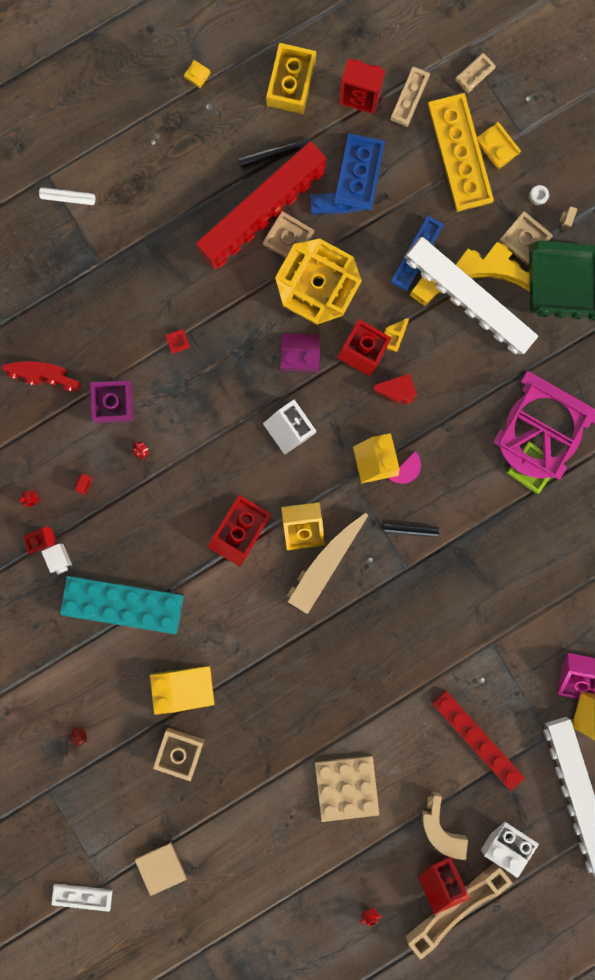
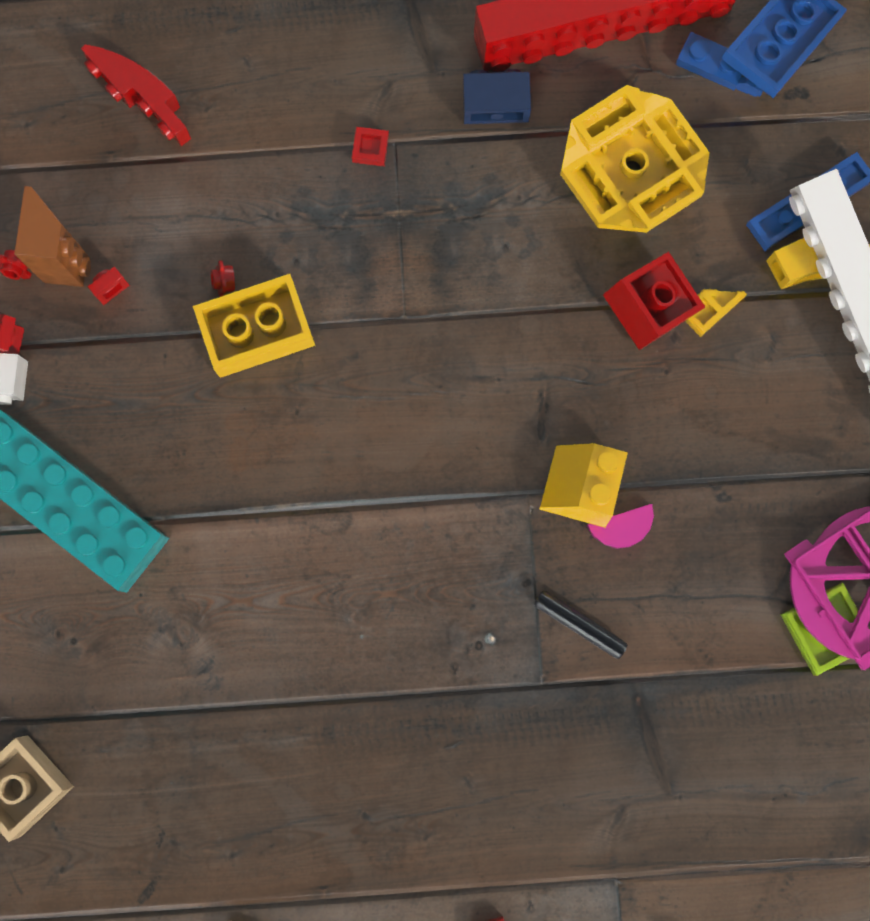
camera: 30 degrees right, 5 degrees down
(45, 480) = (48, 245): none -> dark orange slope
(112, 402) = (219, 183): magenta brick -> none
(169, 466) = (253, 326): none -> yellow brick
(181, 689) = (80, 686): yellow slope -> none
(229, 281) = (496, 97): none -> dark blue brick
(239, 530) = (307, 482): red slope -> none
(286, 233) = (621, 66): tan plate -> none
(289, 427) = (473, 362): white slope -> none
(300, 352) = (548, 260): magenta slope -> none
(303, 526) = (411, 528): yellow slope -> none
(322, 568) = (403, 612): tan slope -> none
(397, 390) = (672, 392): red slope -> none

